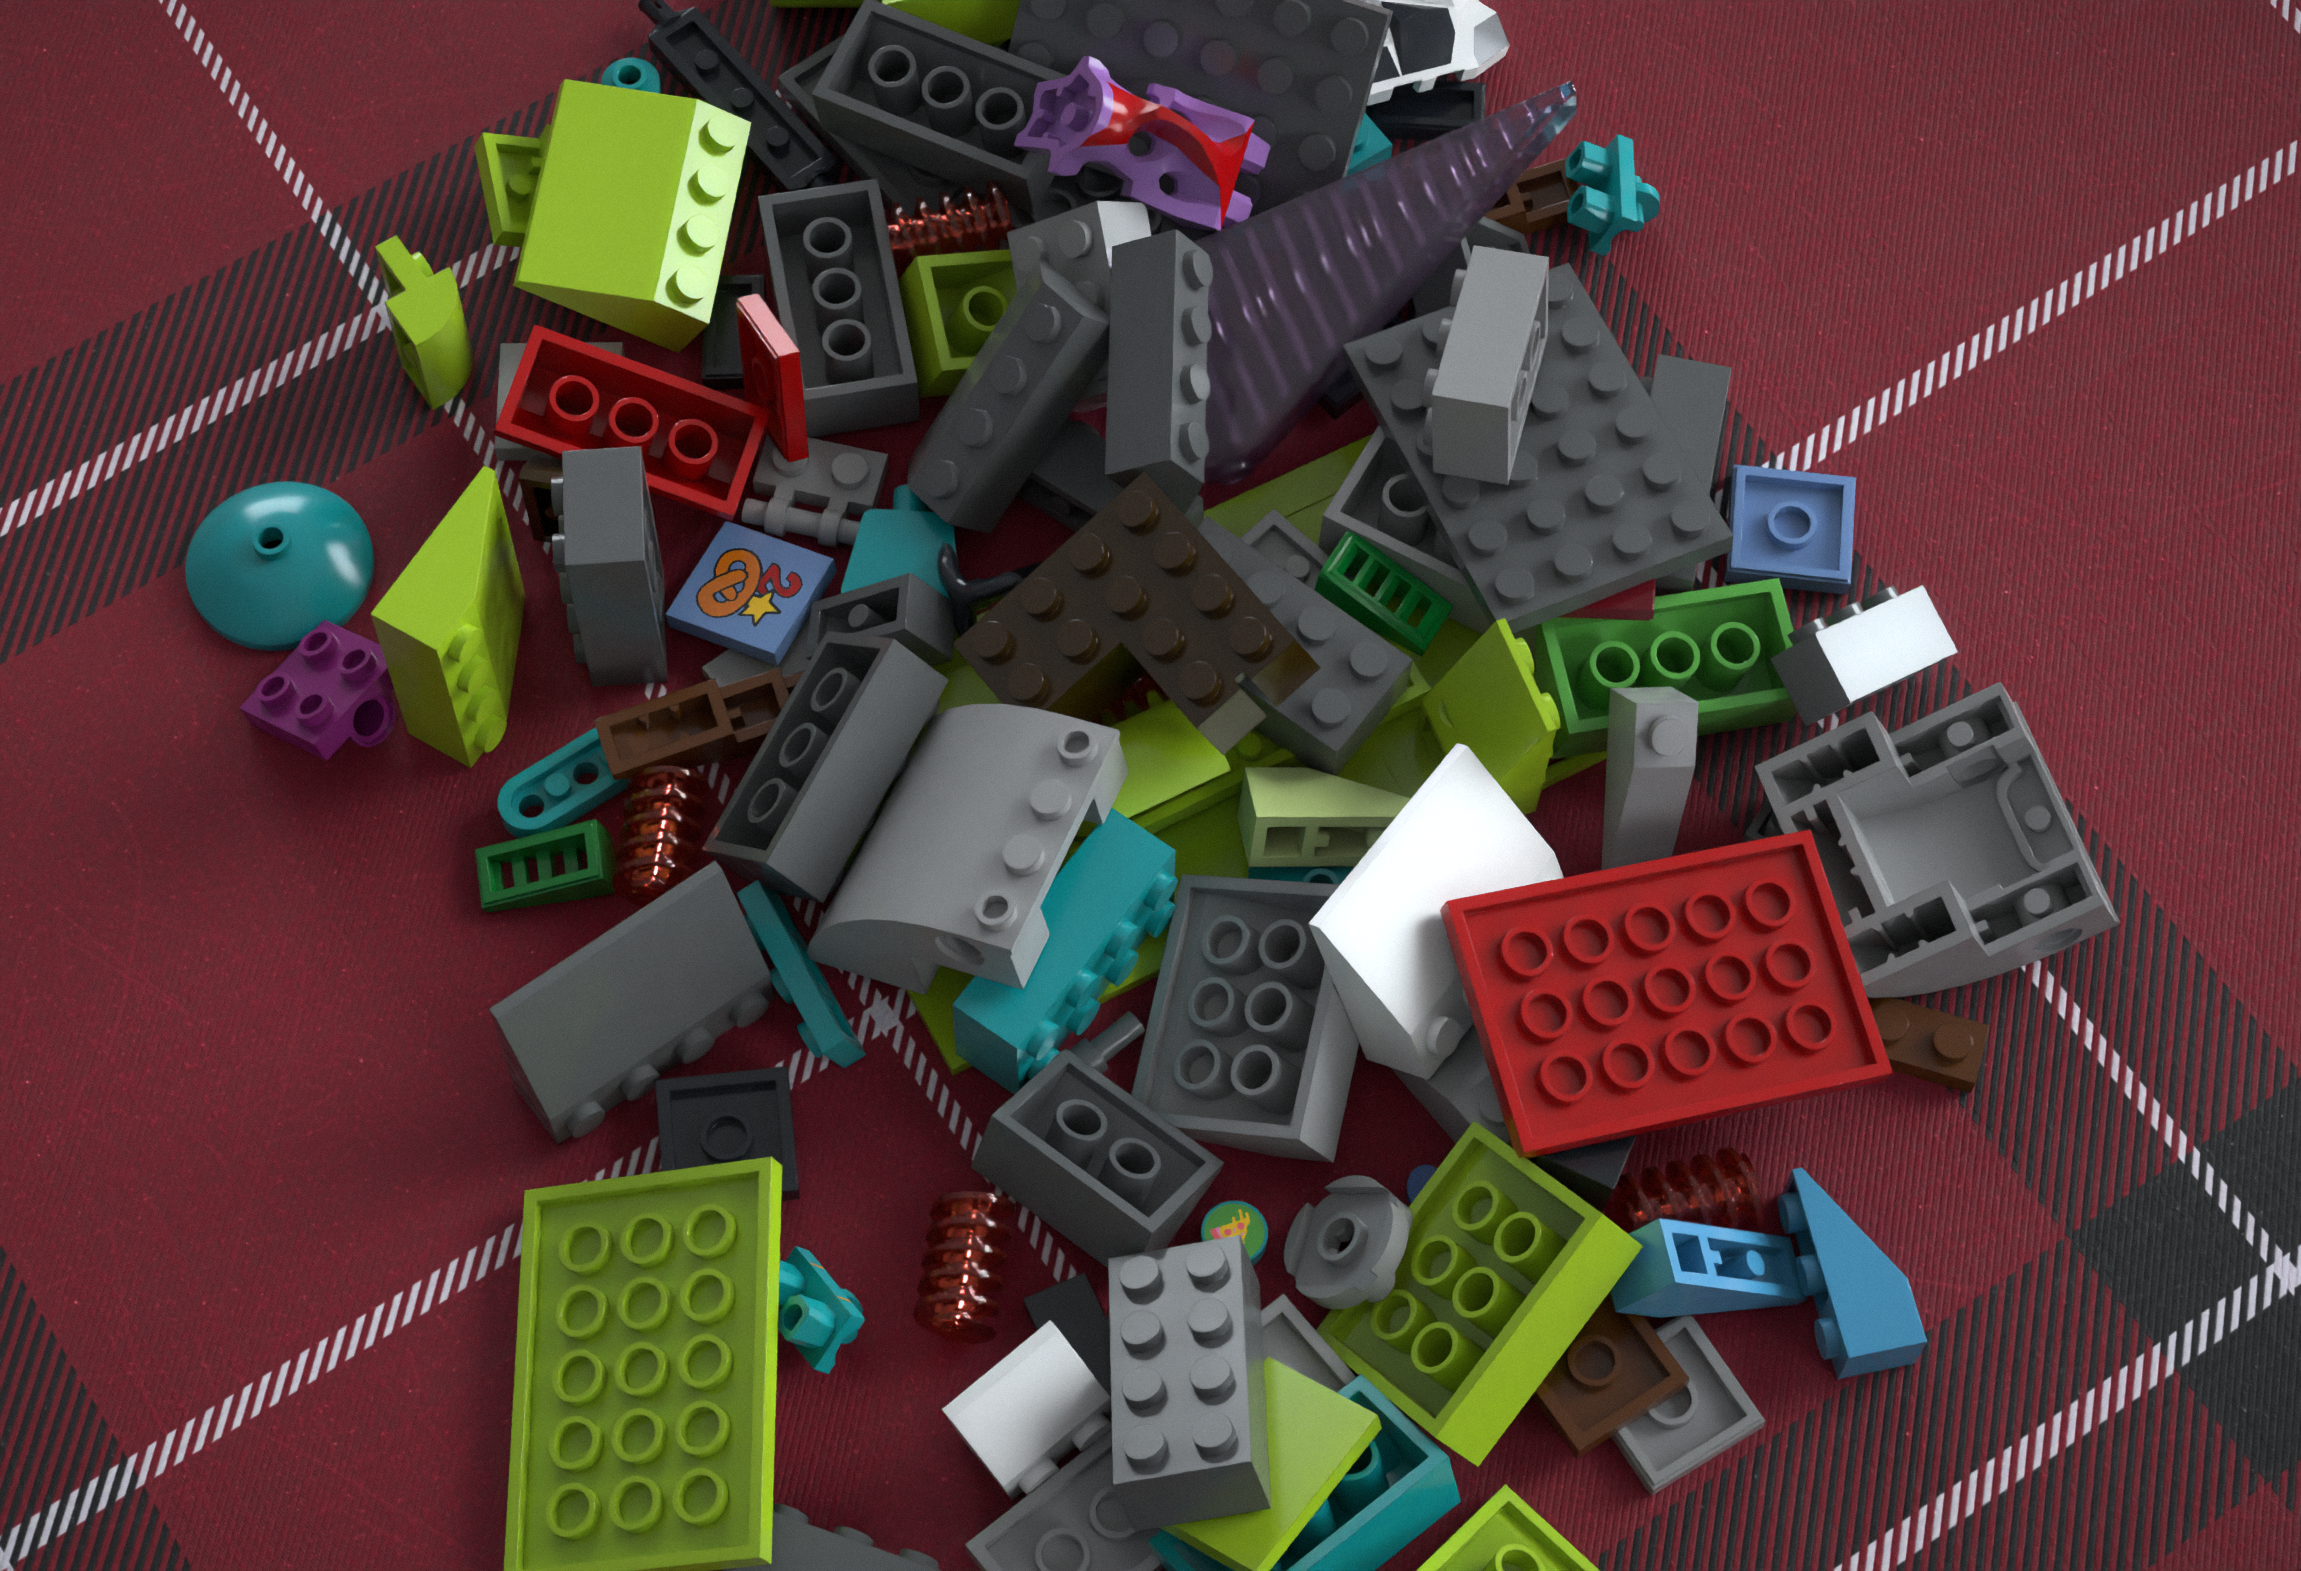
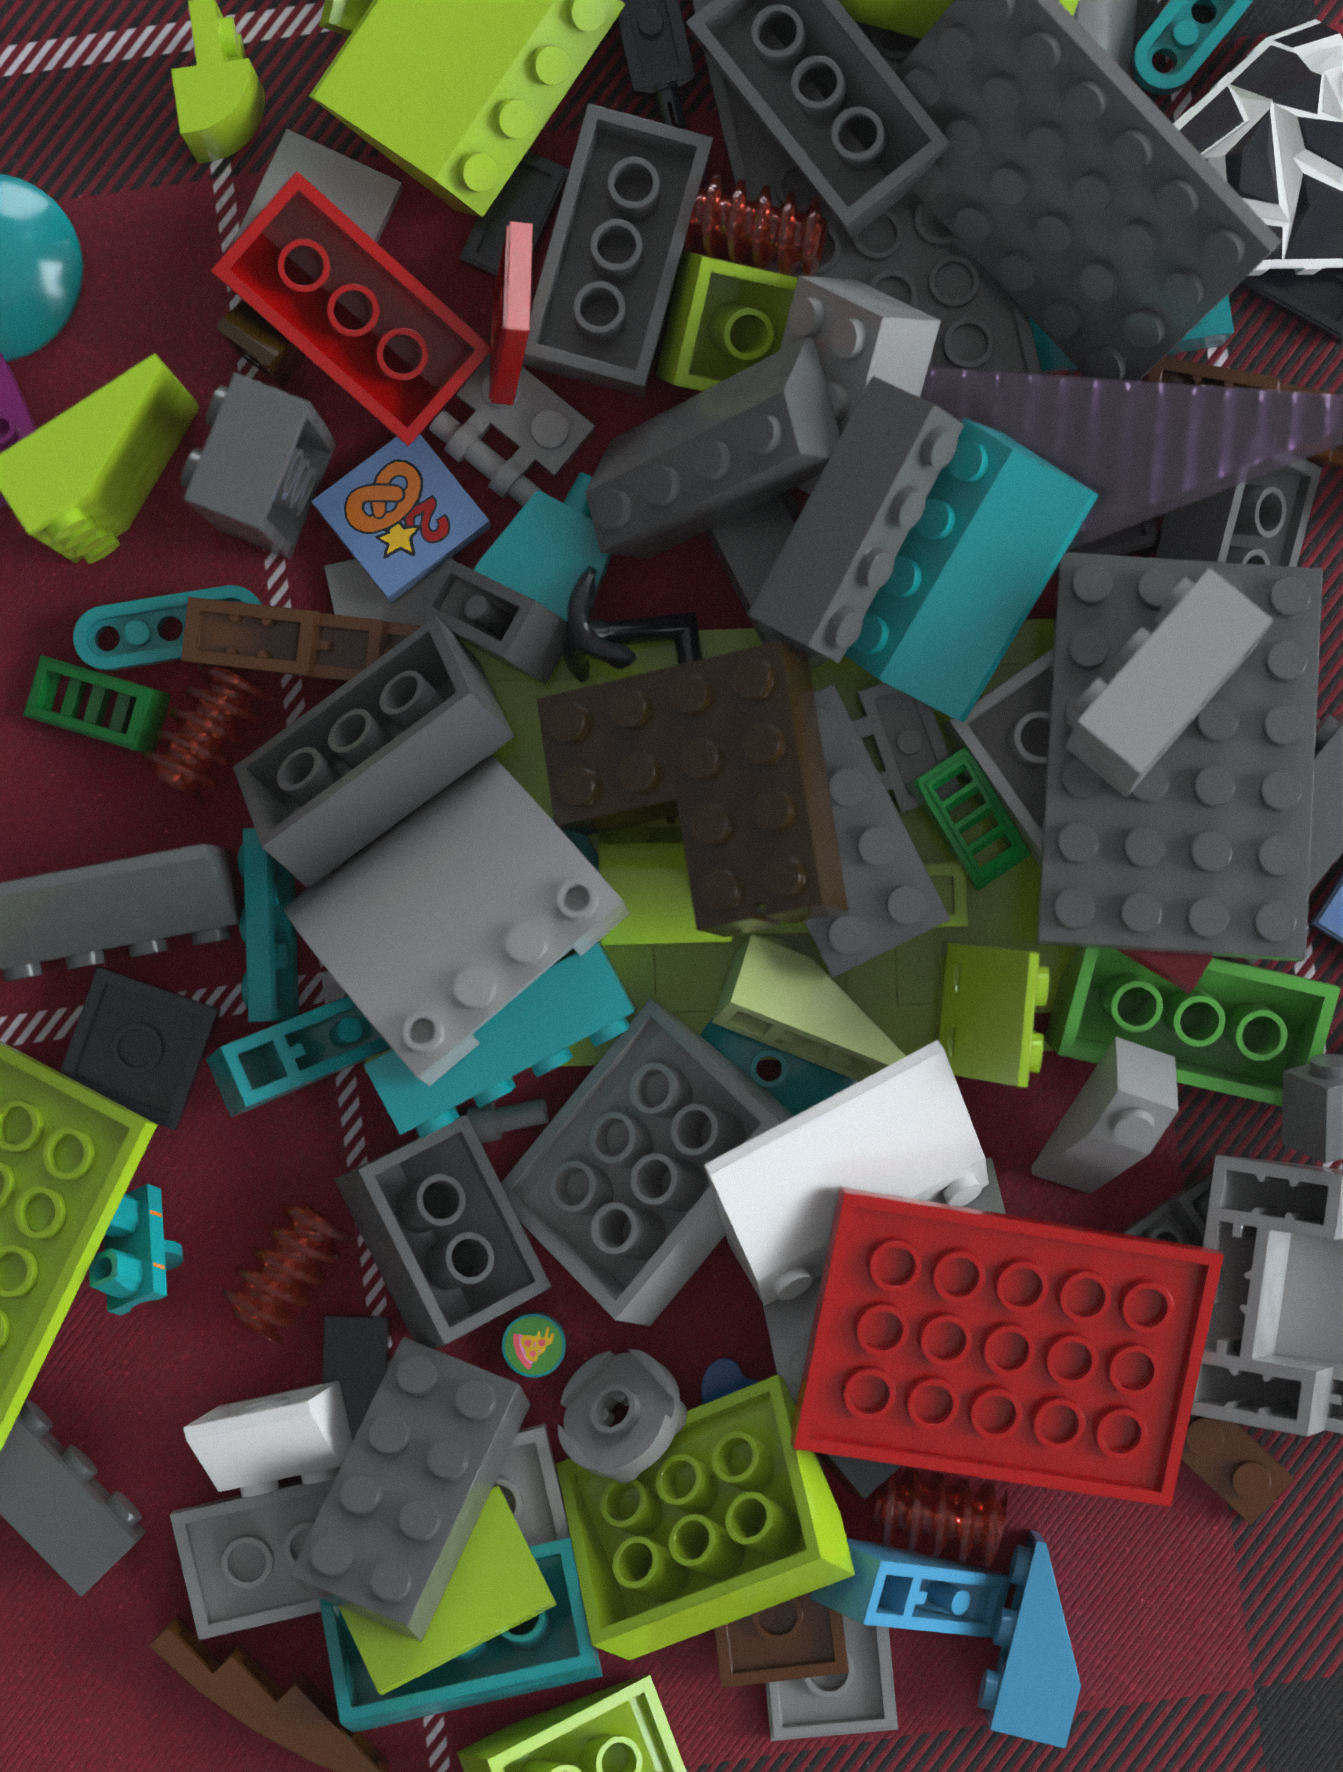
camera: 25 degrees right, 25 degrees up
(880, 1067) = (293, 1054): none -> teal slope
(1094, 118) = (962, 265): medium lavender hips -> none
(1274, 383) = (970, 570): none -> teal slope

